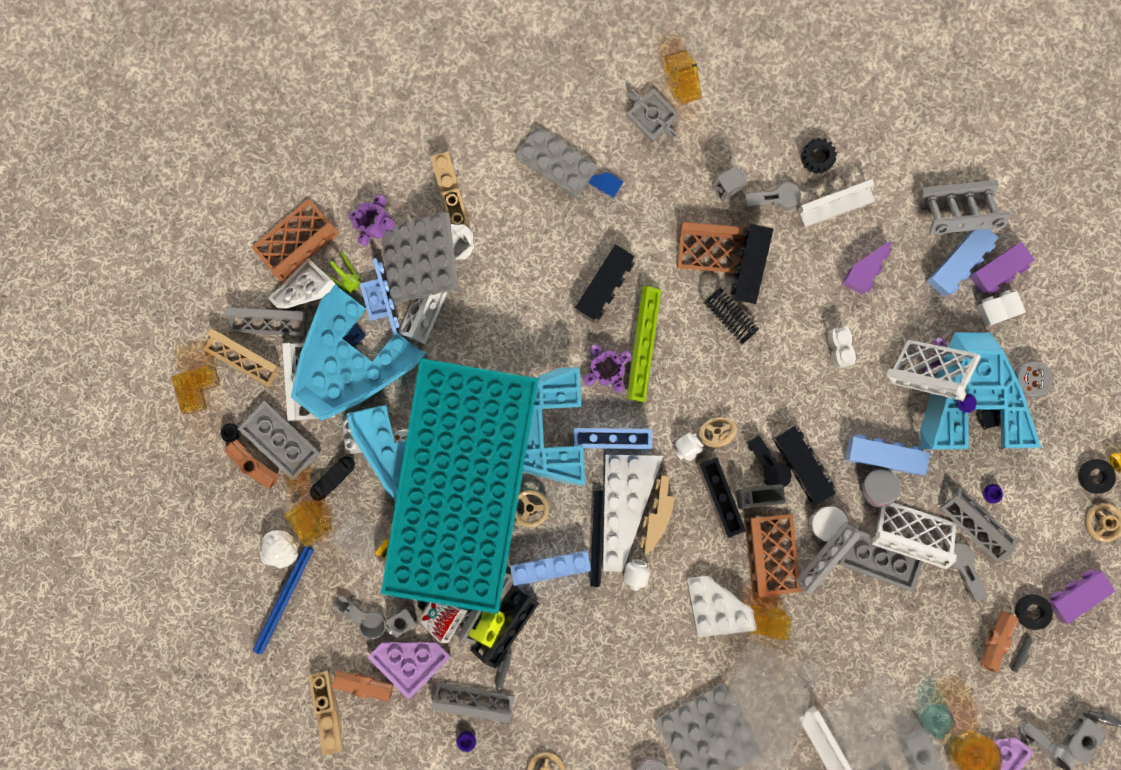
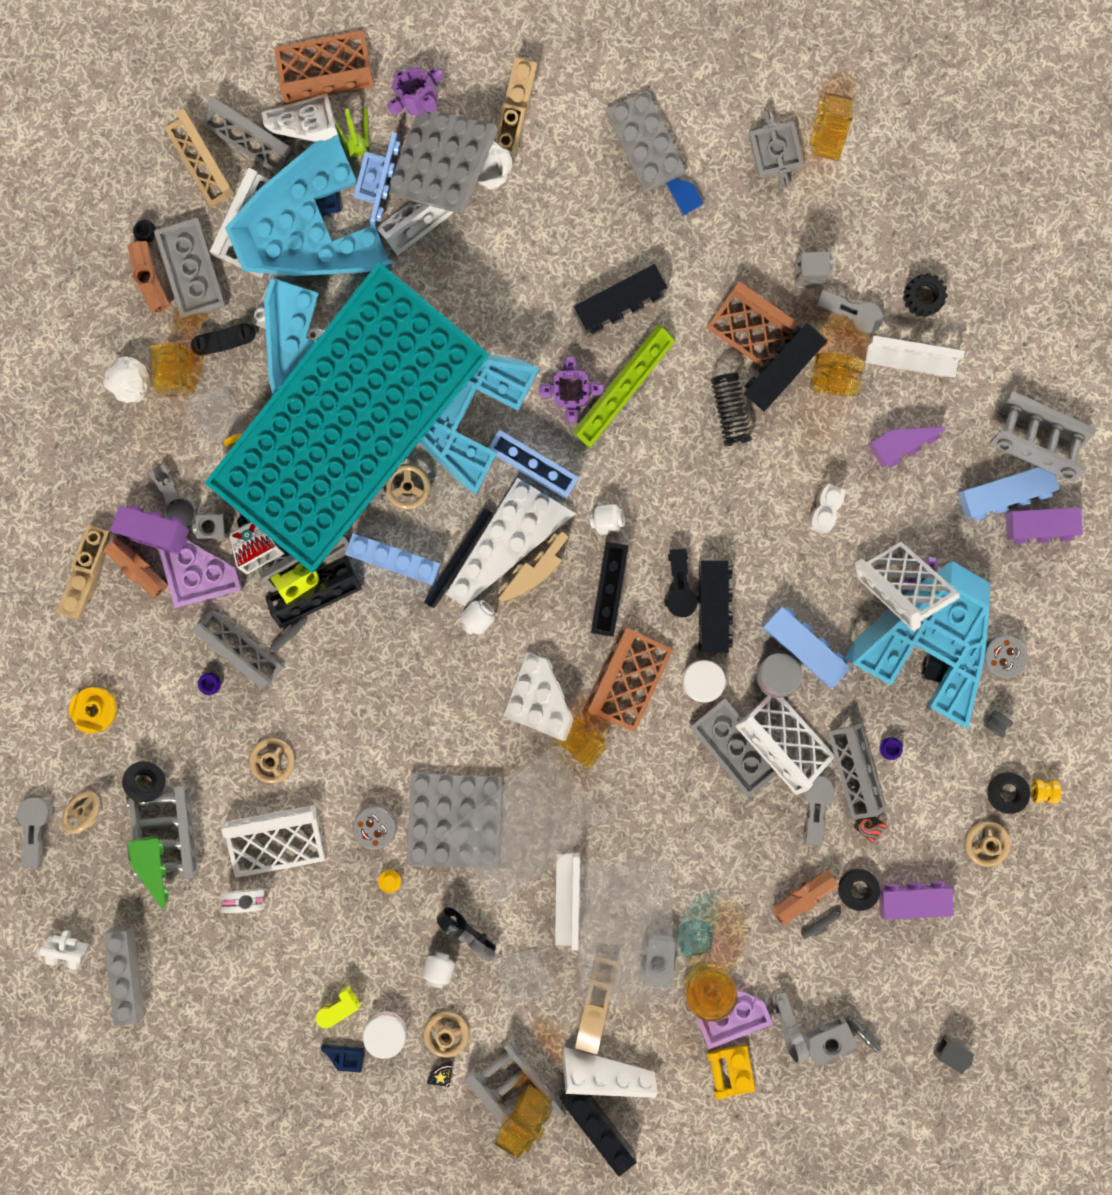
camera: 30 degrees right, 5 degrees up
(190, 388) = (129, 158): clear yellow brick -> none
(283, 600) = (104, 434): blue axle -> none
(357, 651) = (149, 529): none -> medium lavender brick
(719, 434) = (646, 524): tan piece -> none
(760, 496) = (649, 611): dark grey animal -> none
(792, 247) = (837, 374): none -> clear yellow wheel
(828, 557) = (682, 713): light grey fence -> none
(968, 404) = (918, 638): dark purple plate -> none
(1001, 308) = (1017, 565): white brick -> none
(1014, 561) = (870, 828): none -> tile
(1059, 430) = (998, 724): none -> dark grey wheel

